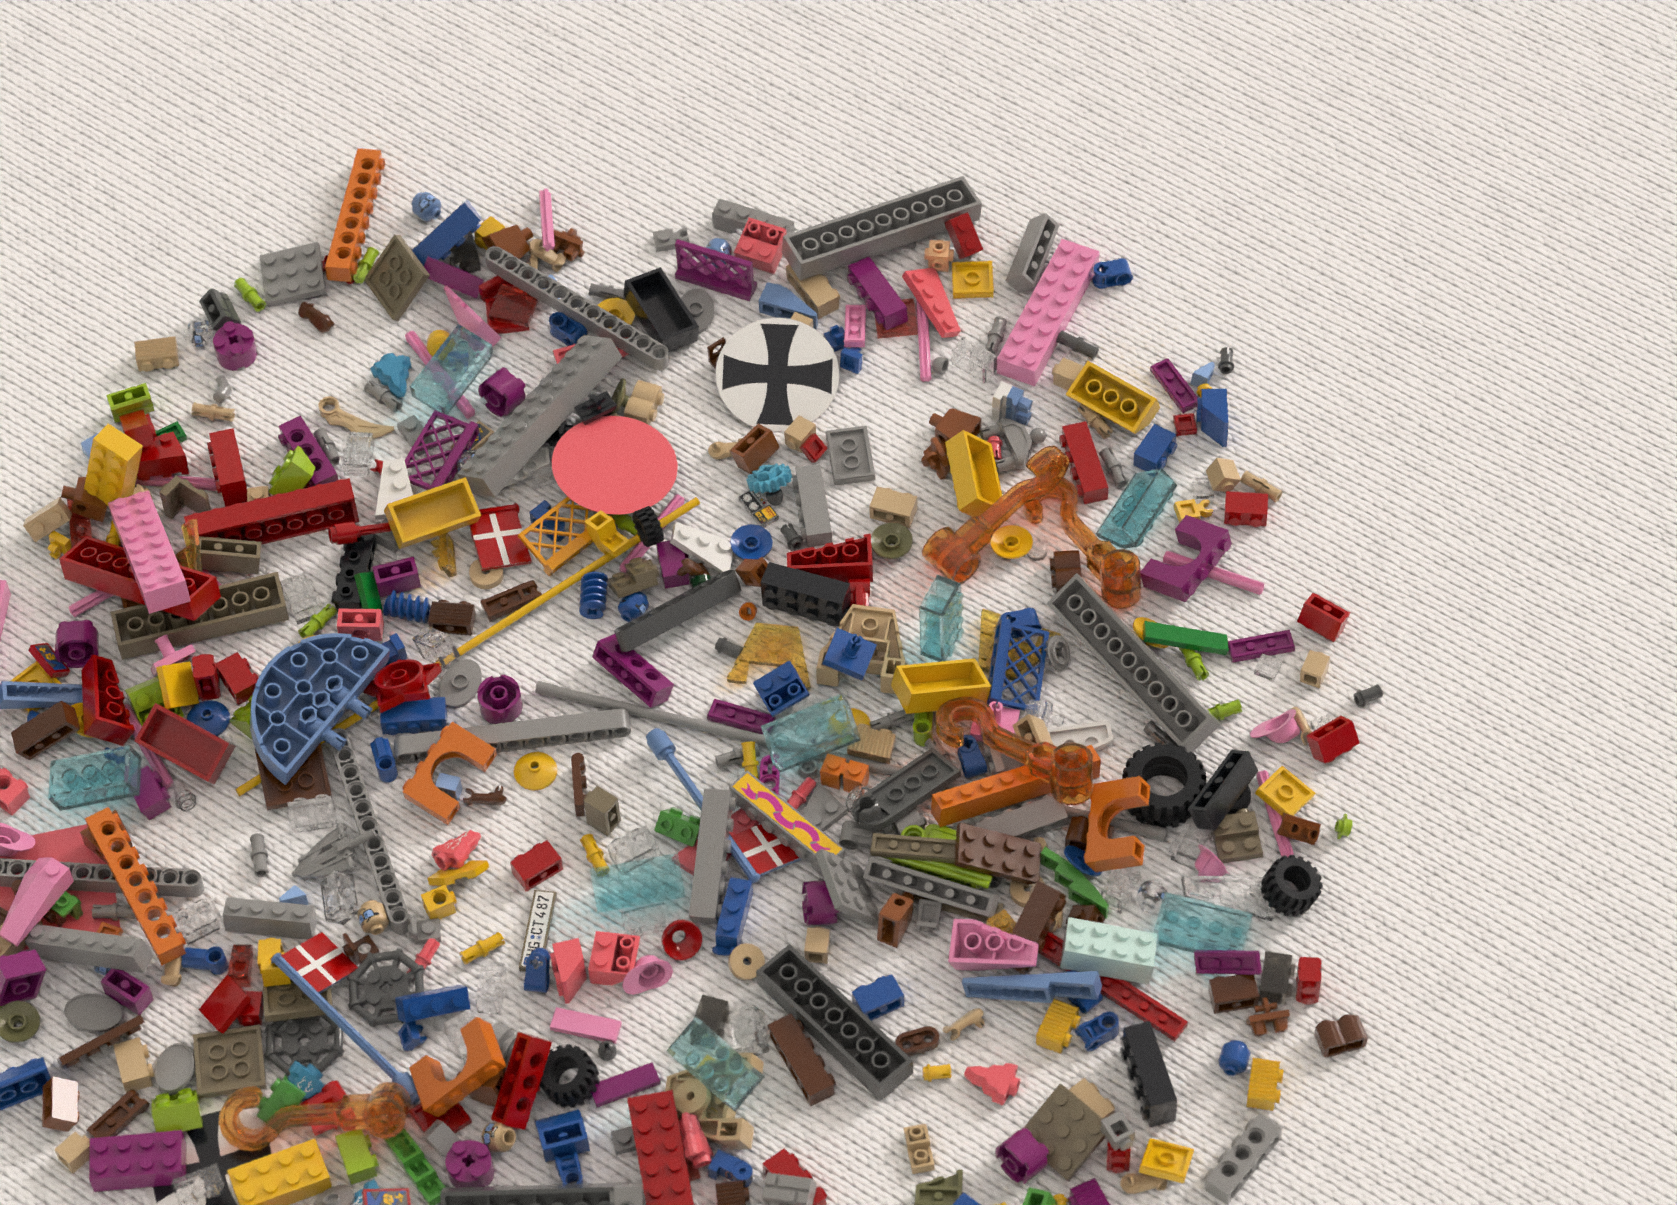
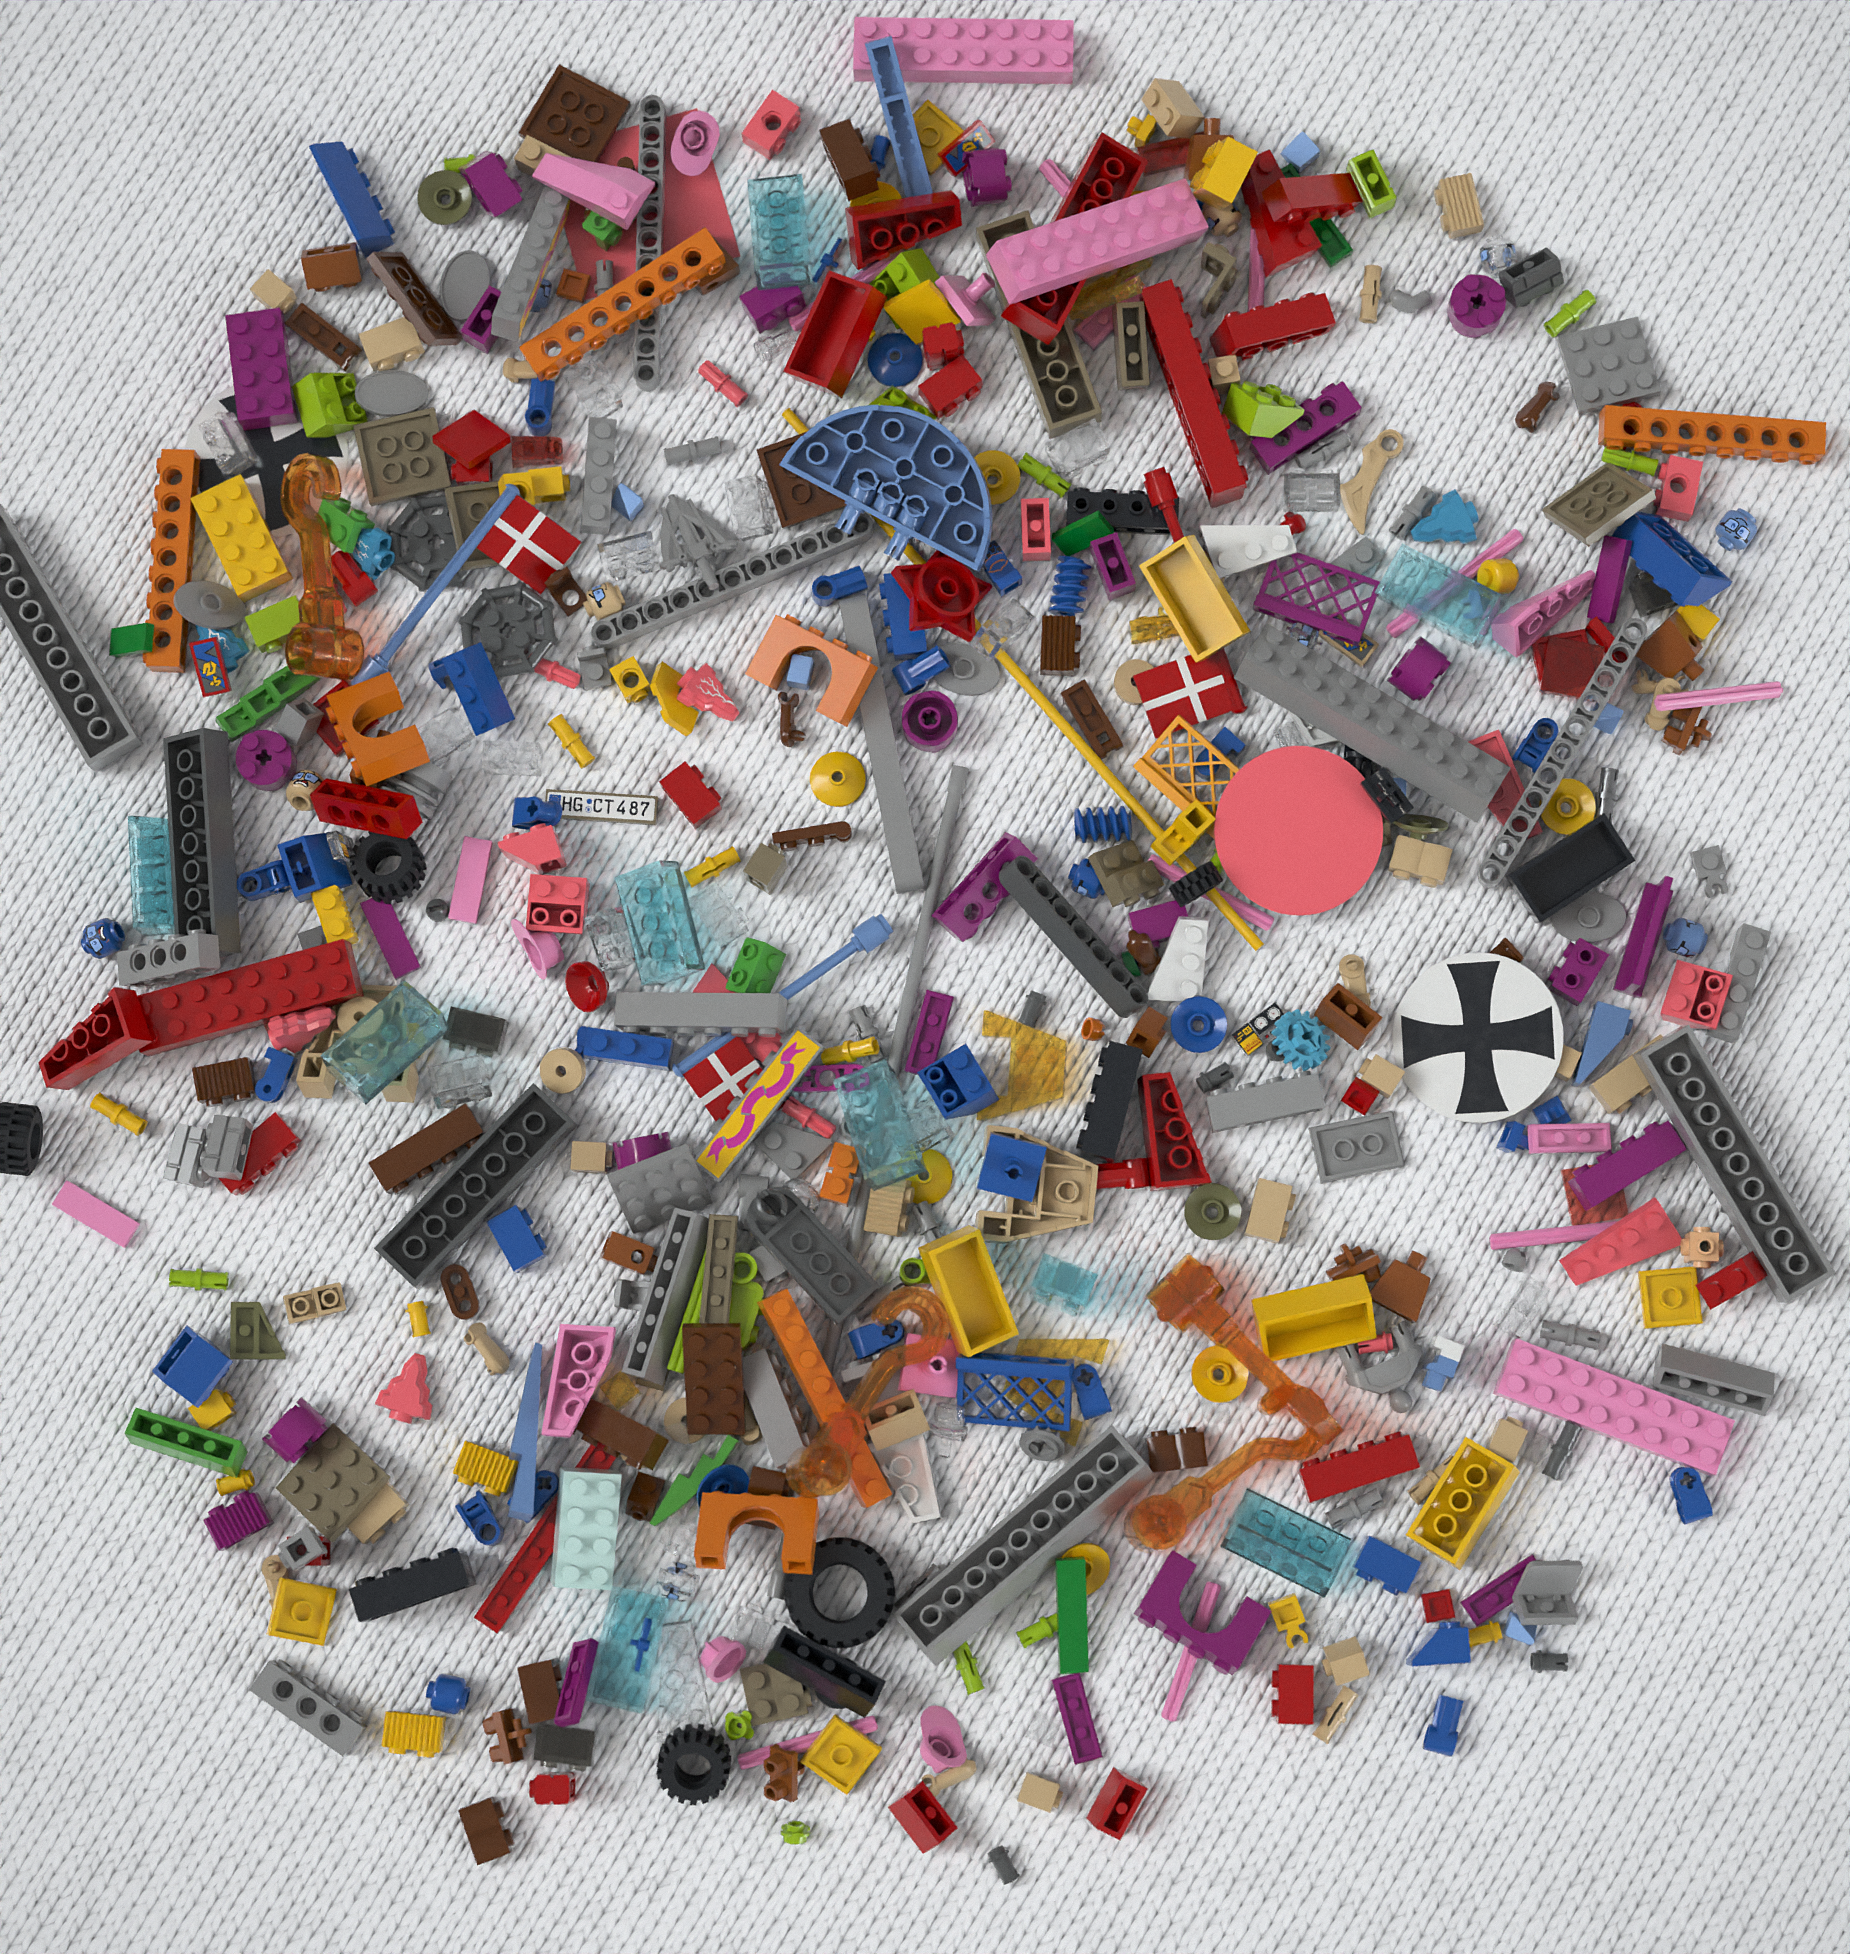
camera: 90 degrees right, 25 degrees up
(207, 833) = (722, 383): none -> coral axle
(383, 231) = (1687, 474): none -> coral brick
(460, 710) = (914, 673): none -> blue piece
(551, 1105) = (341, 847): none -> clear tile
(605, 1119) = (334, 915): none -> yellow brick
(733, 313) = (1577, 971): none -> magenta brick
(1180, 358) = (1545, 1593): none -> light grey bracket
(1199, 913) = (642, 1643): none -> blue piece
(1257, 857) = (732, 1728): none -> lime plate
(1276, 424) = (1442, 1733): none -> blue piece

